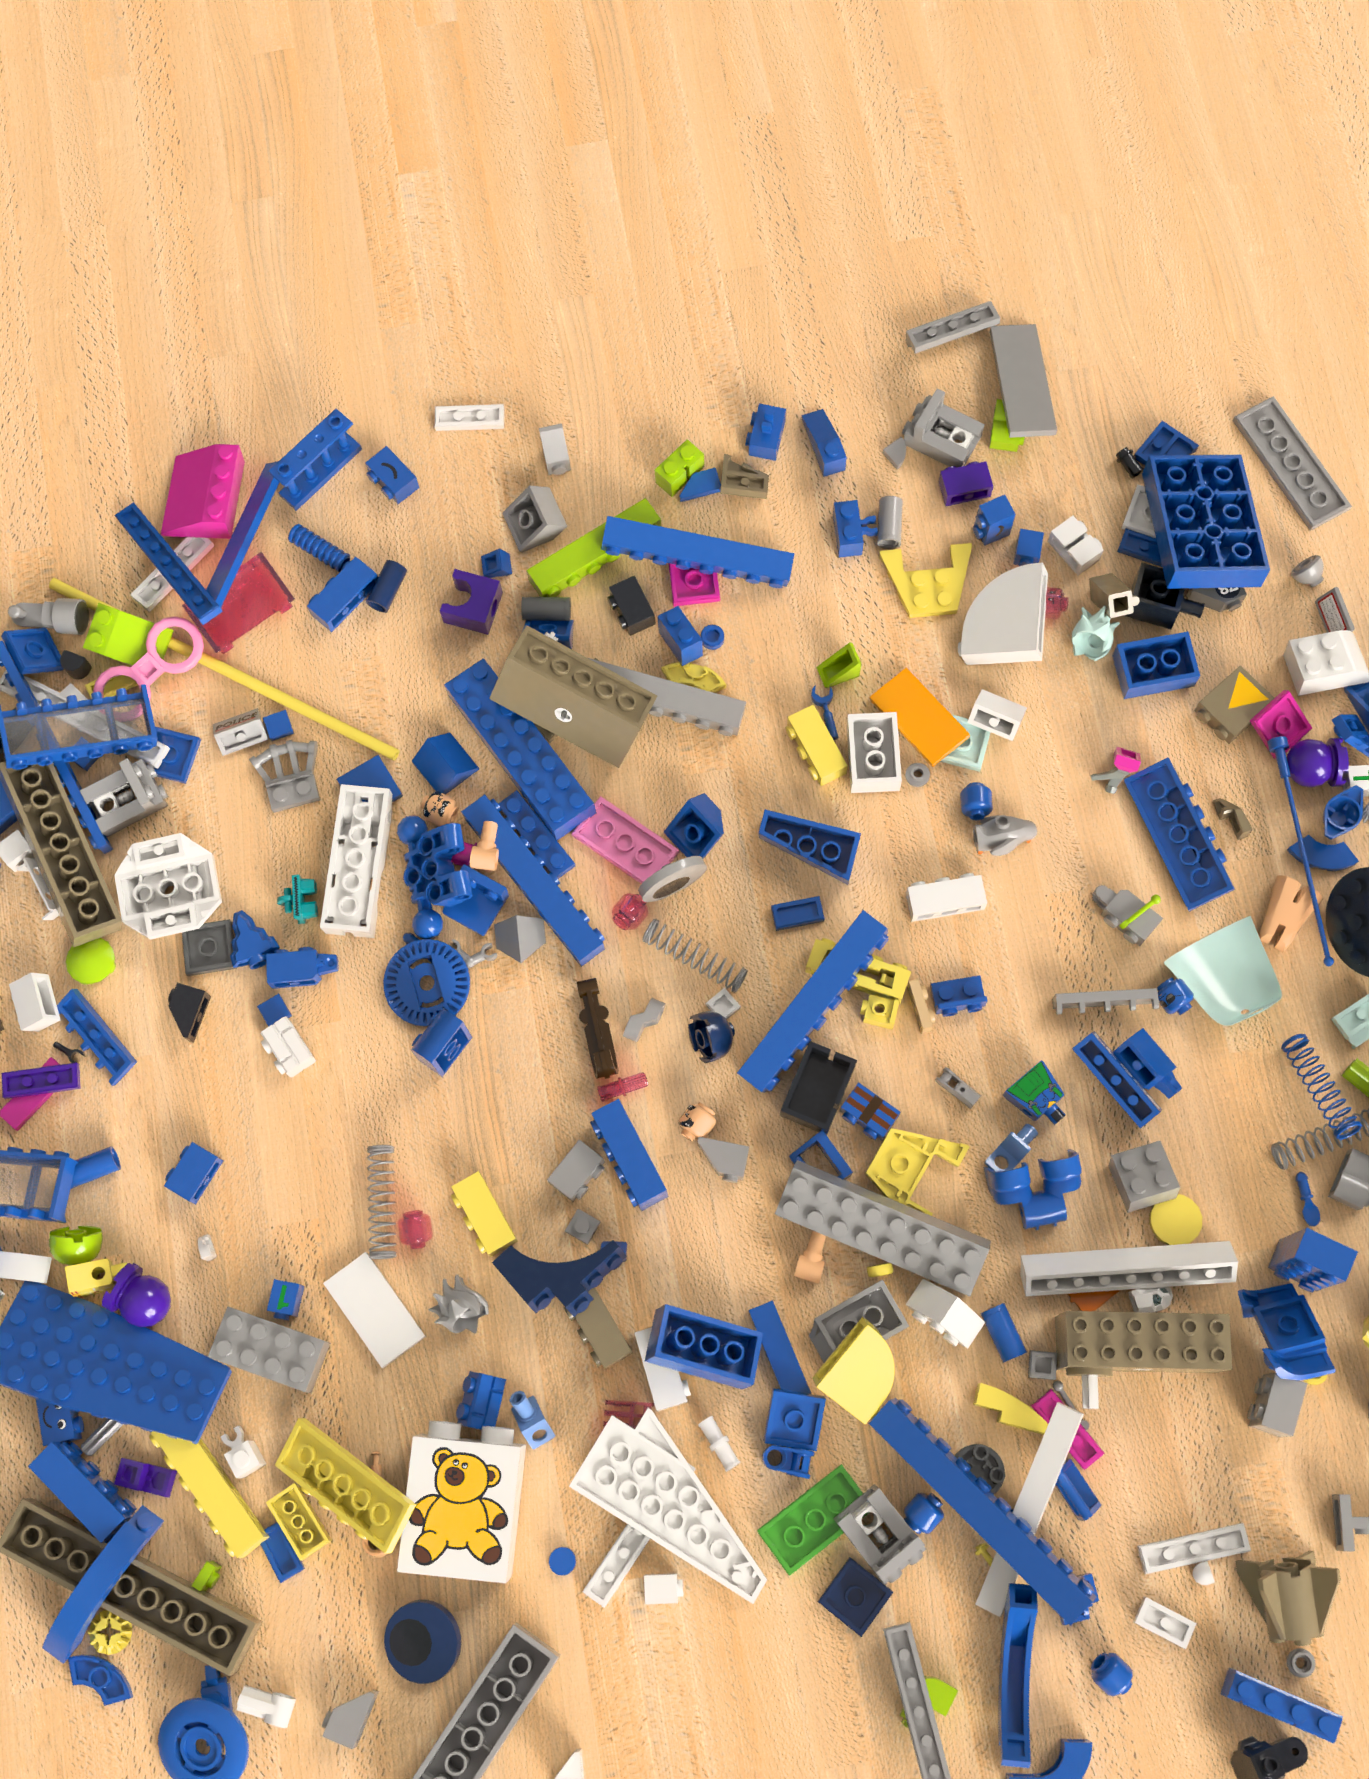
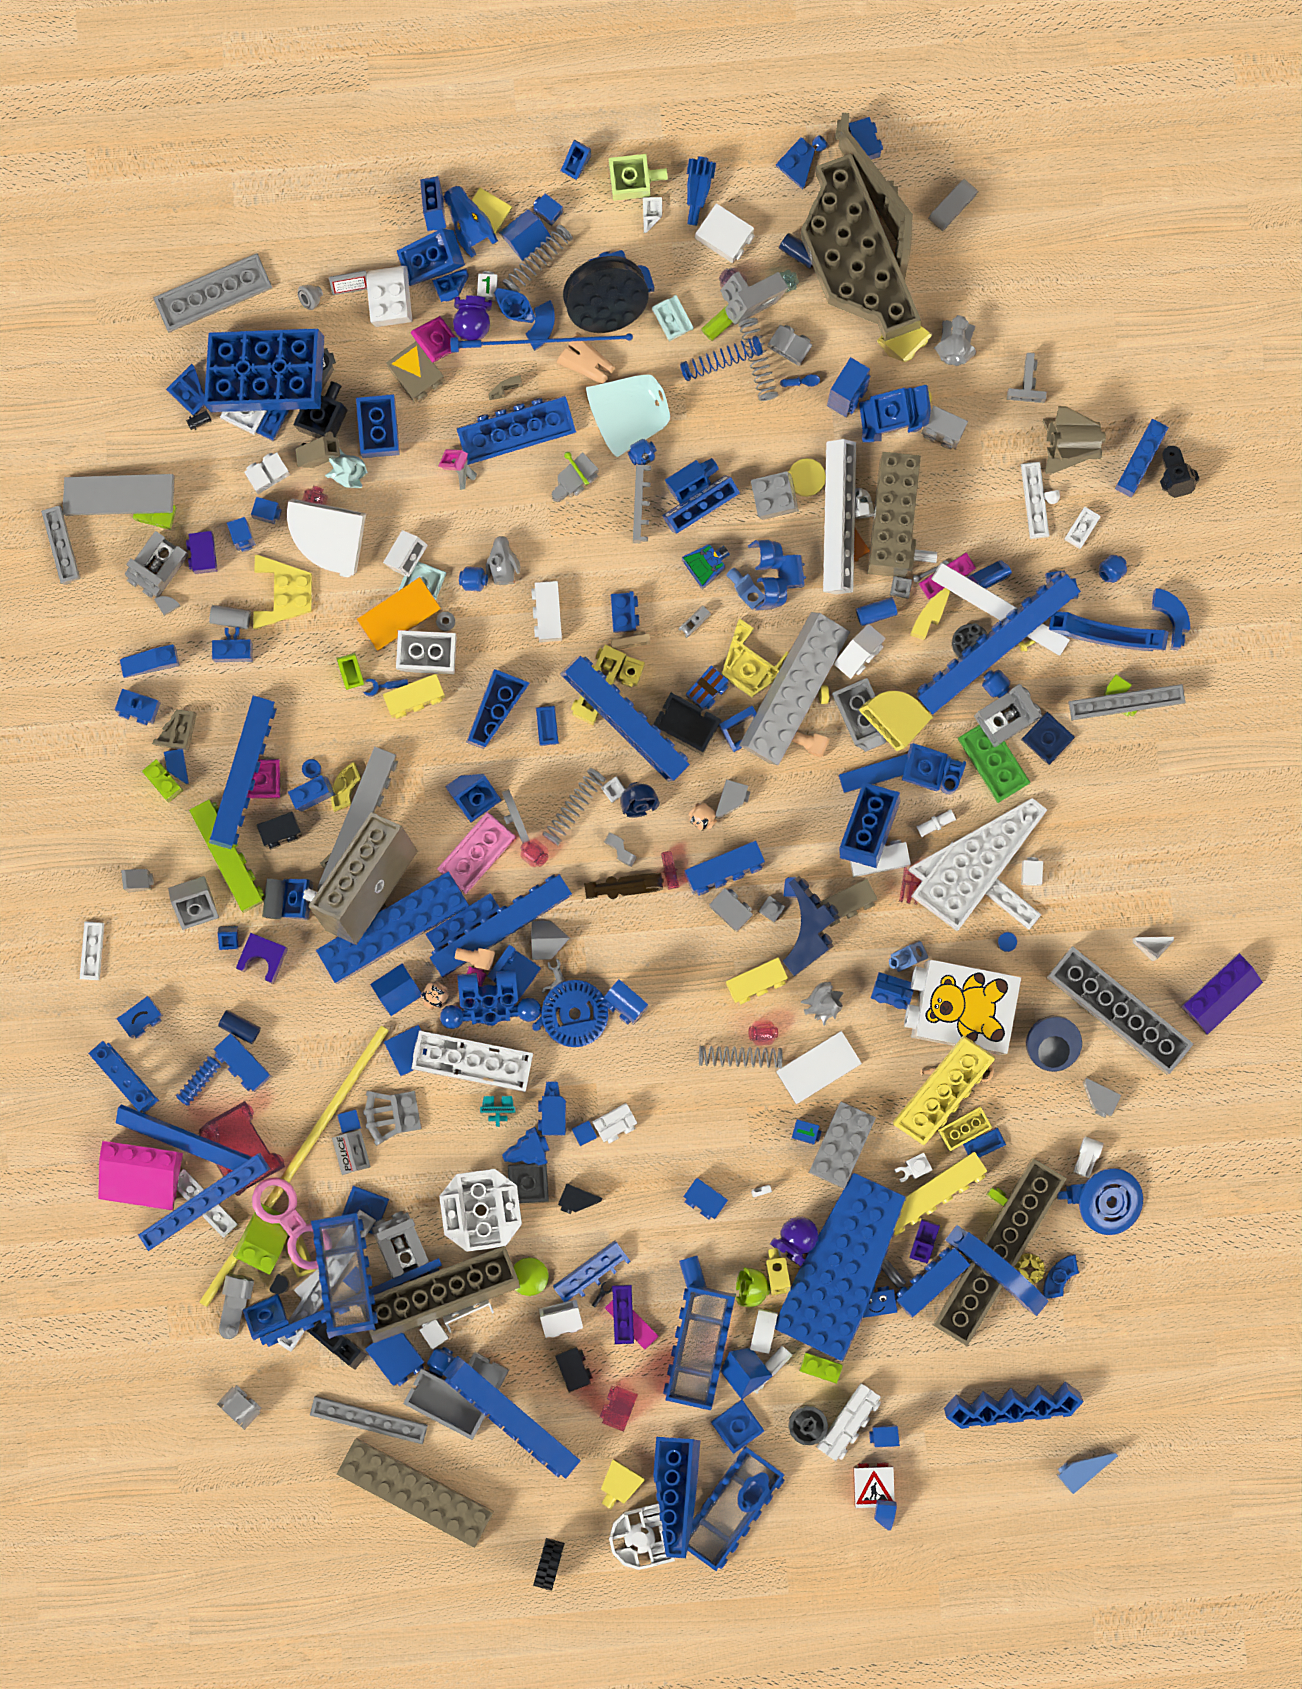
camera: 90 degrees left, 10 degrees up
(1309, 1663) = (1115, 434): light grey plate -> none

